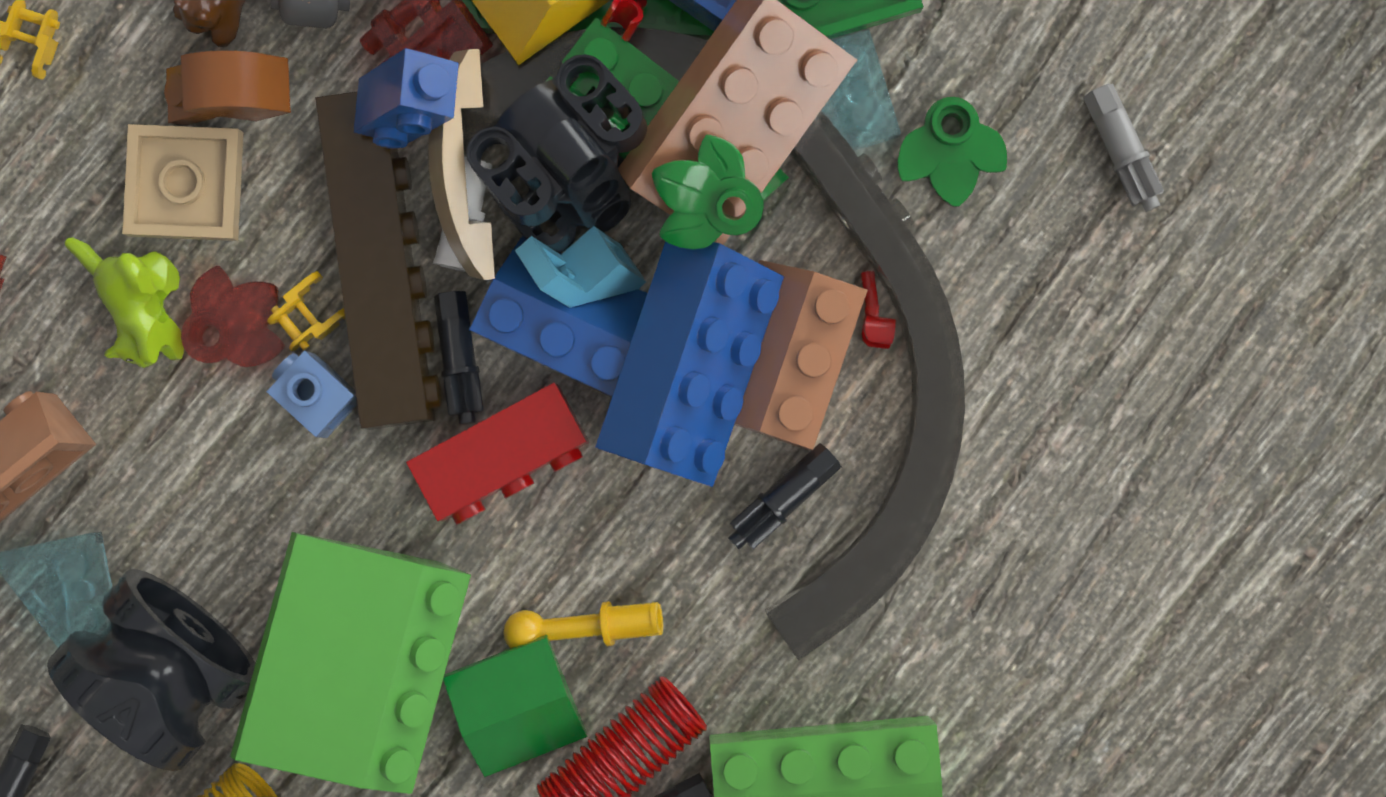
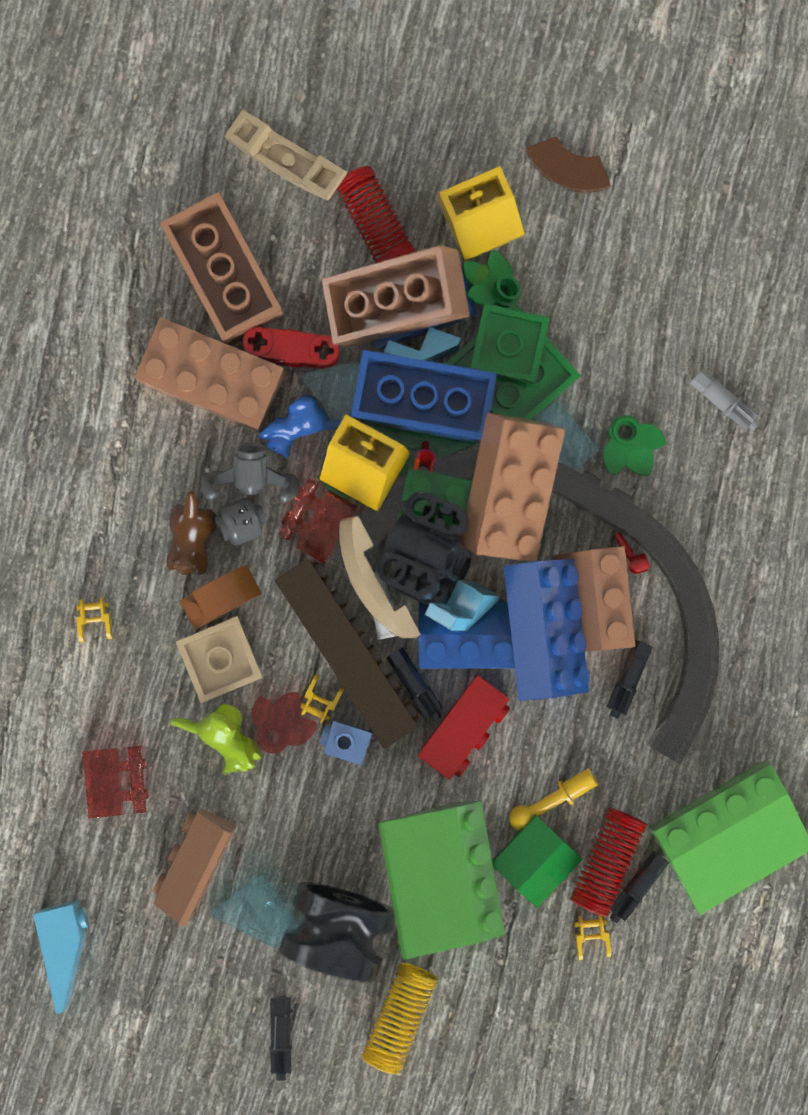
camera: 30 degrees left, 0 degrees up
(405, 98) = (329, 560): blue brick -> none
(698, 194) = (515, 537): green plate -> none

